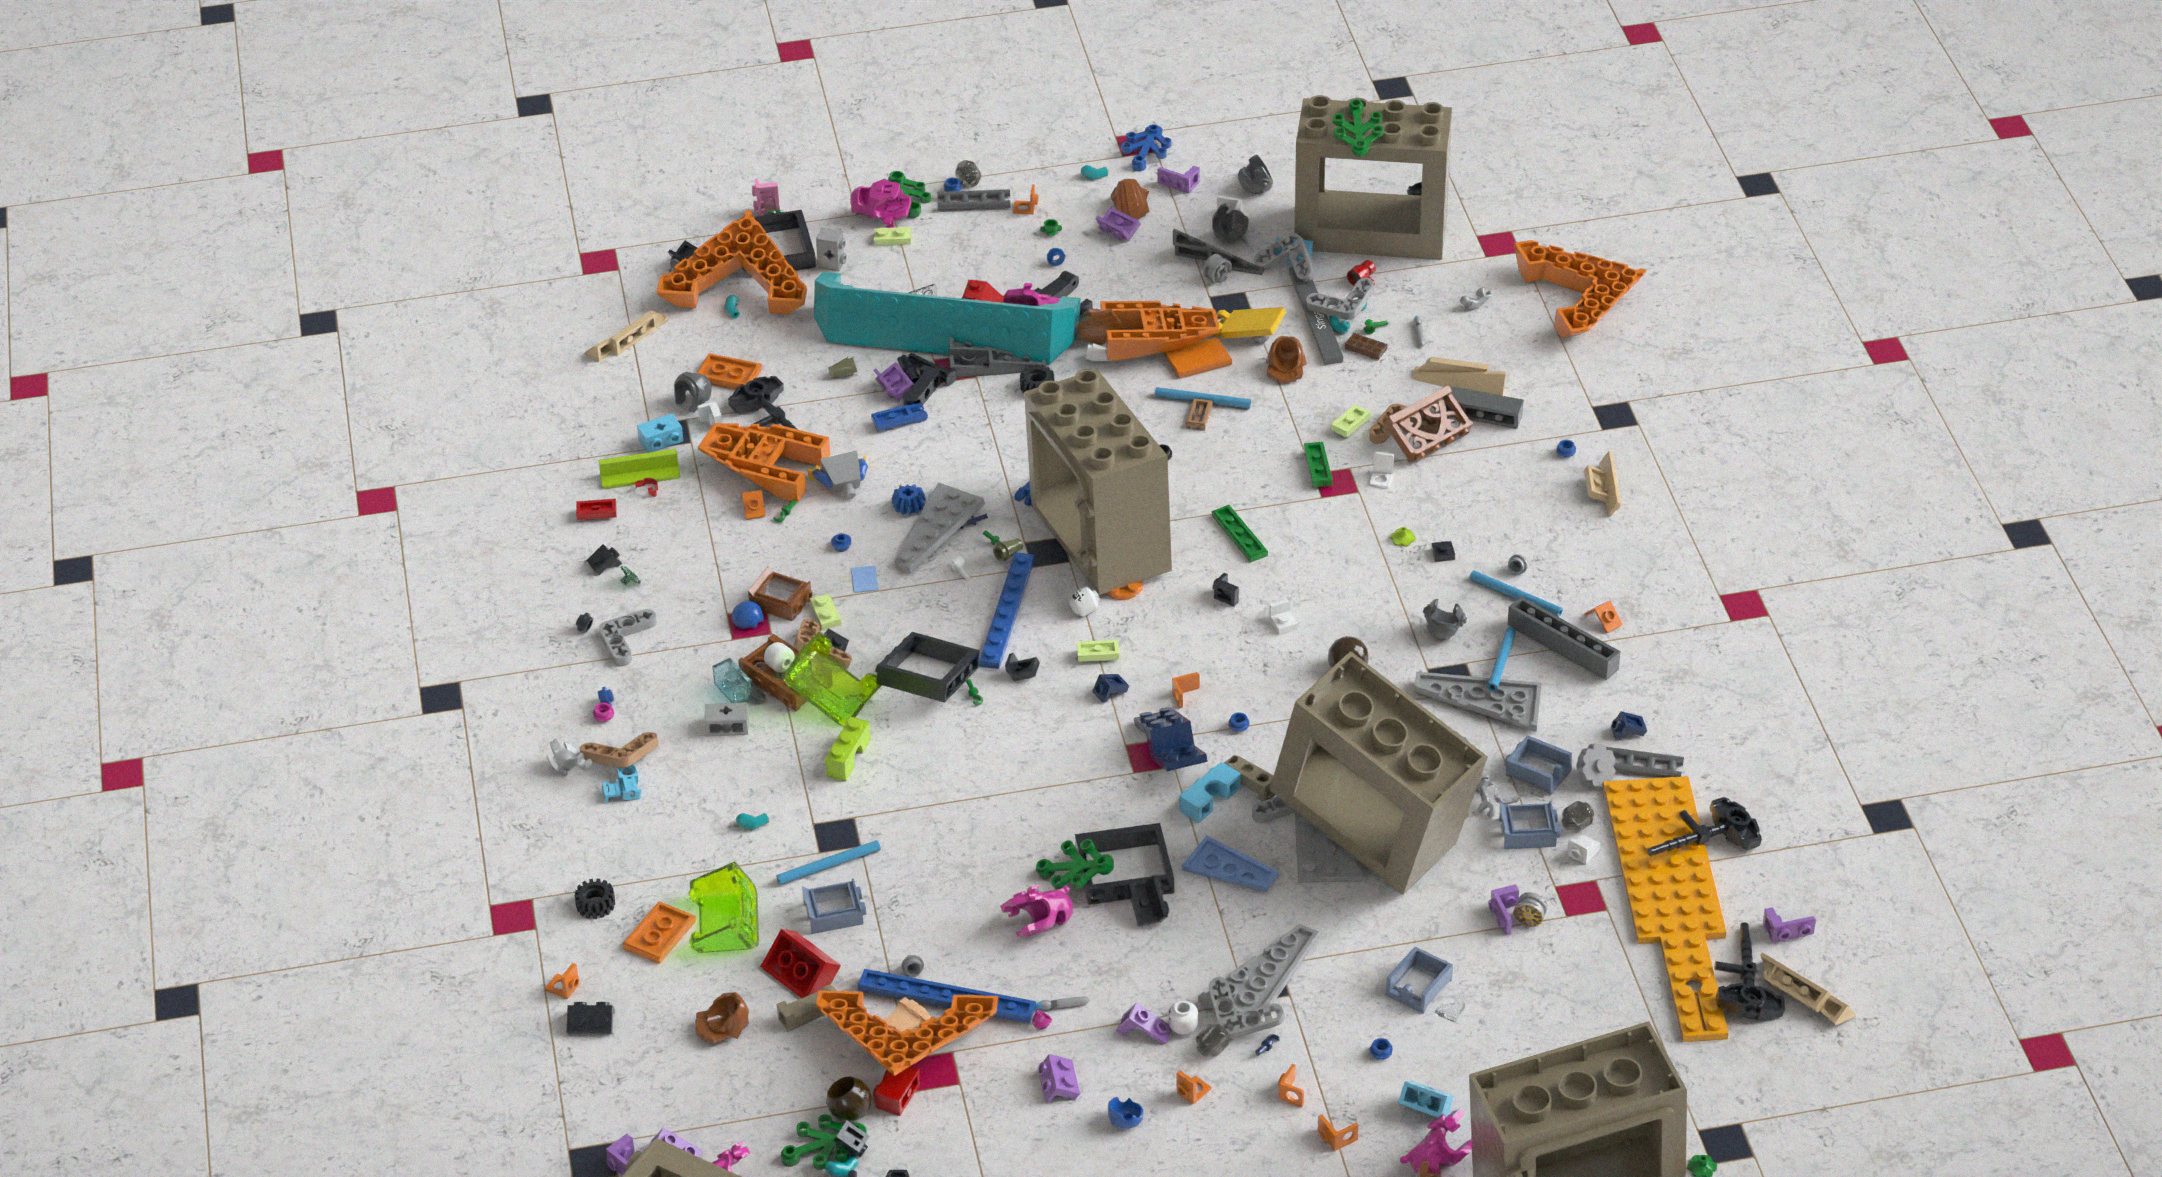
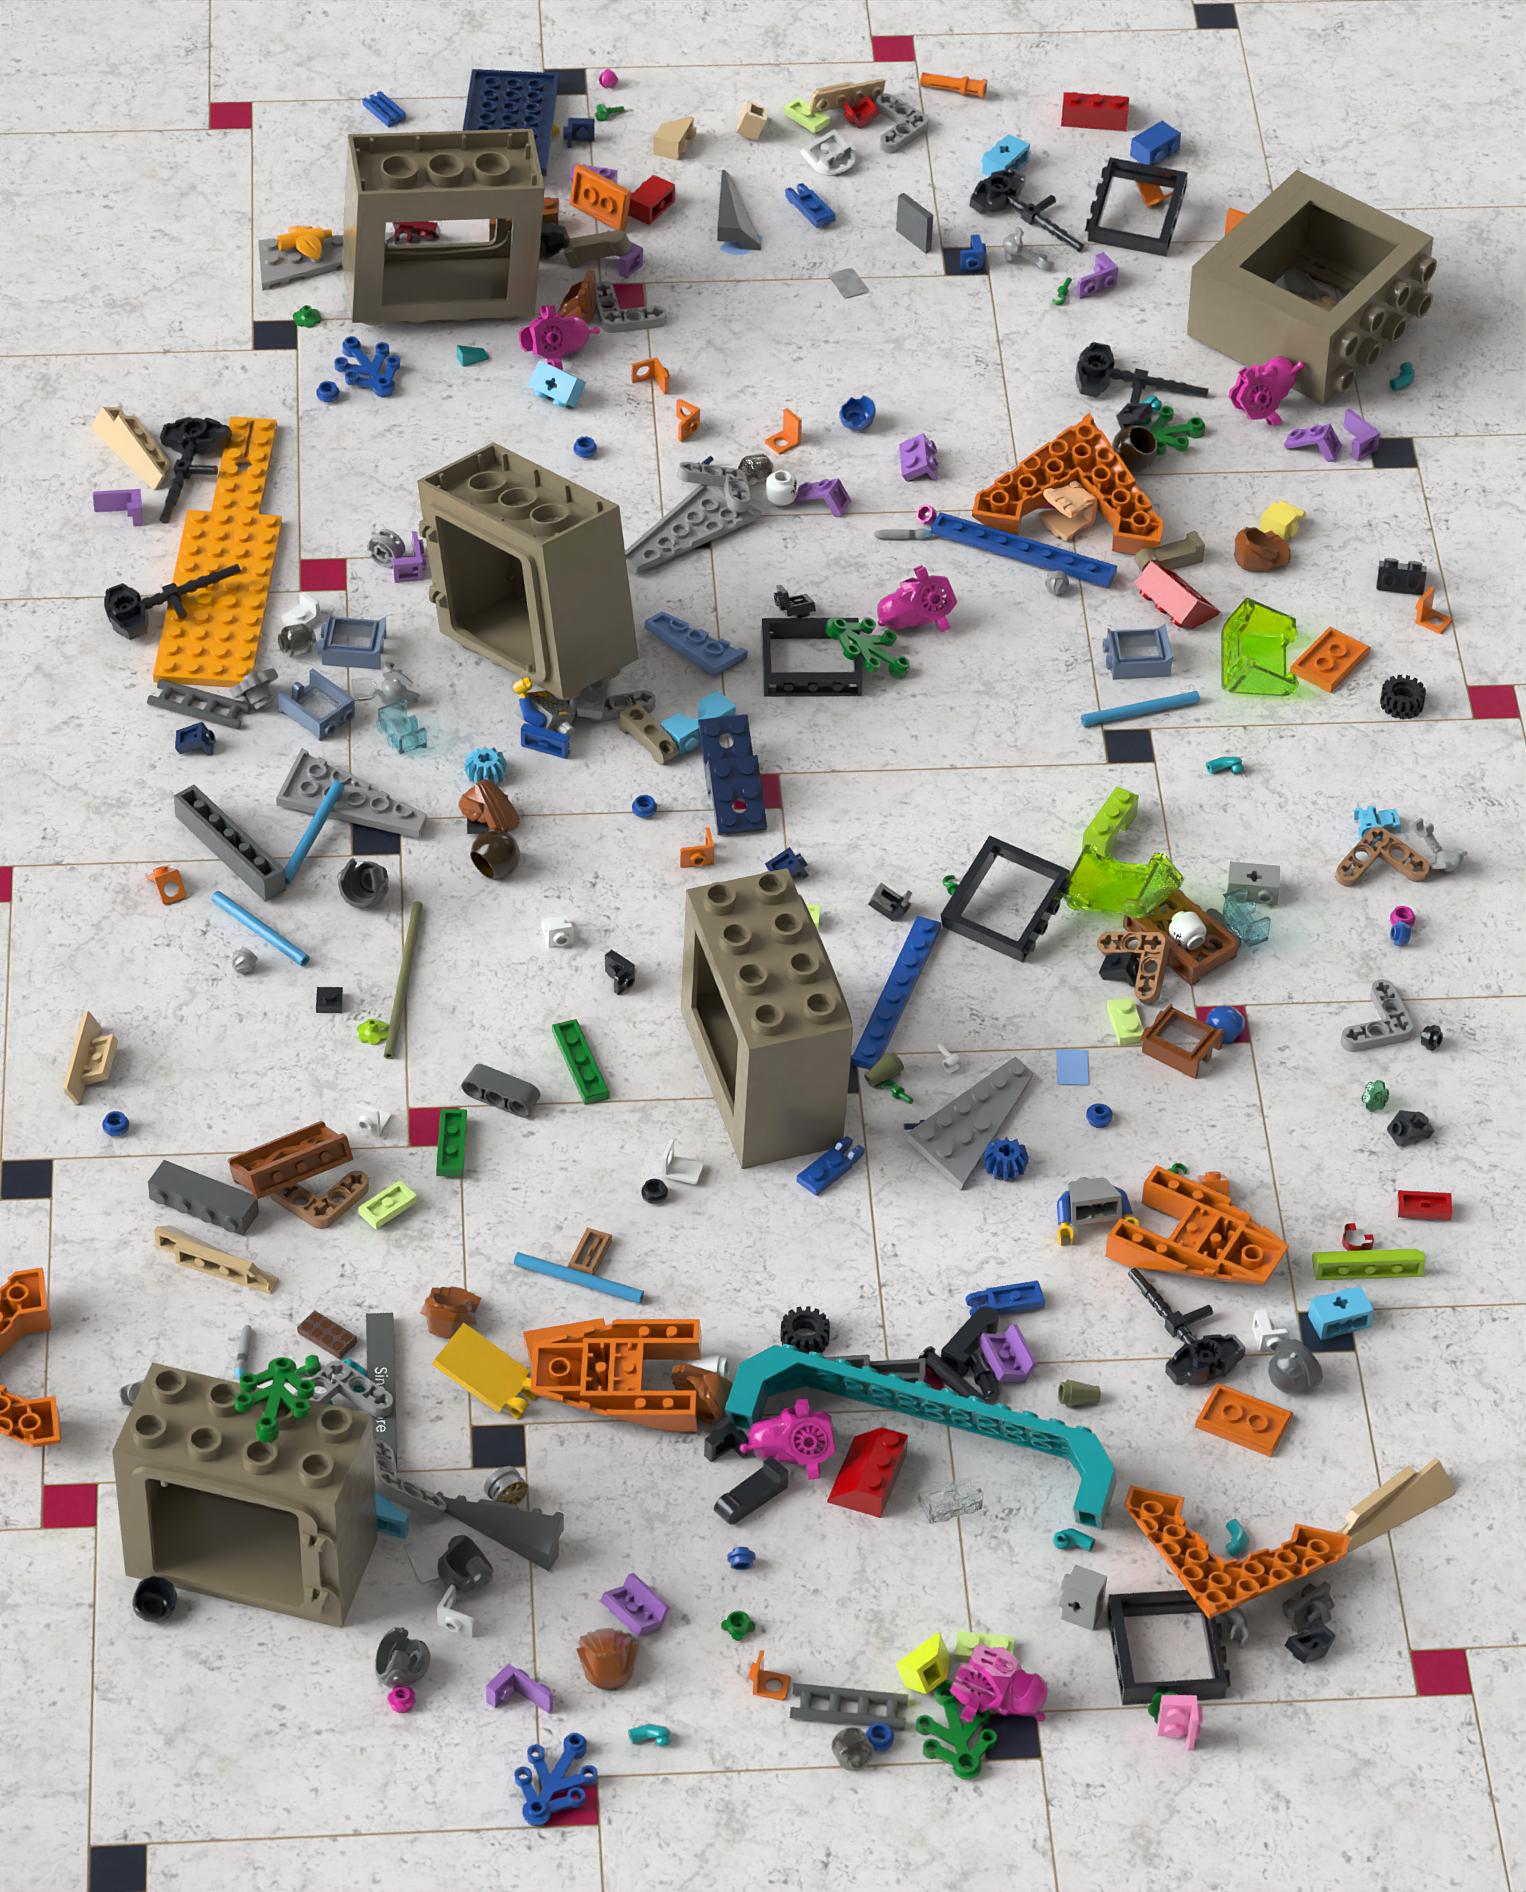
camera: 175 degrees left, 5 degrees up
(704, 1055) = (1281, 519): none -> light yellow brick
(927, 212) = (925, 1665): none -> neon yellow slope
(1292, 500) = (500, 1090): none -> dark grey beam
(1392, 573) = (403, 980): none -> olive piece

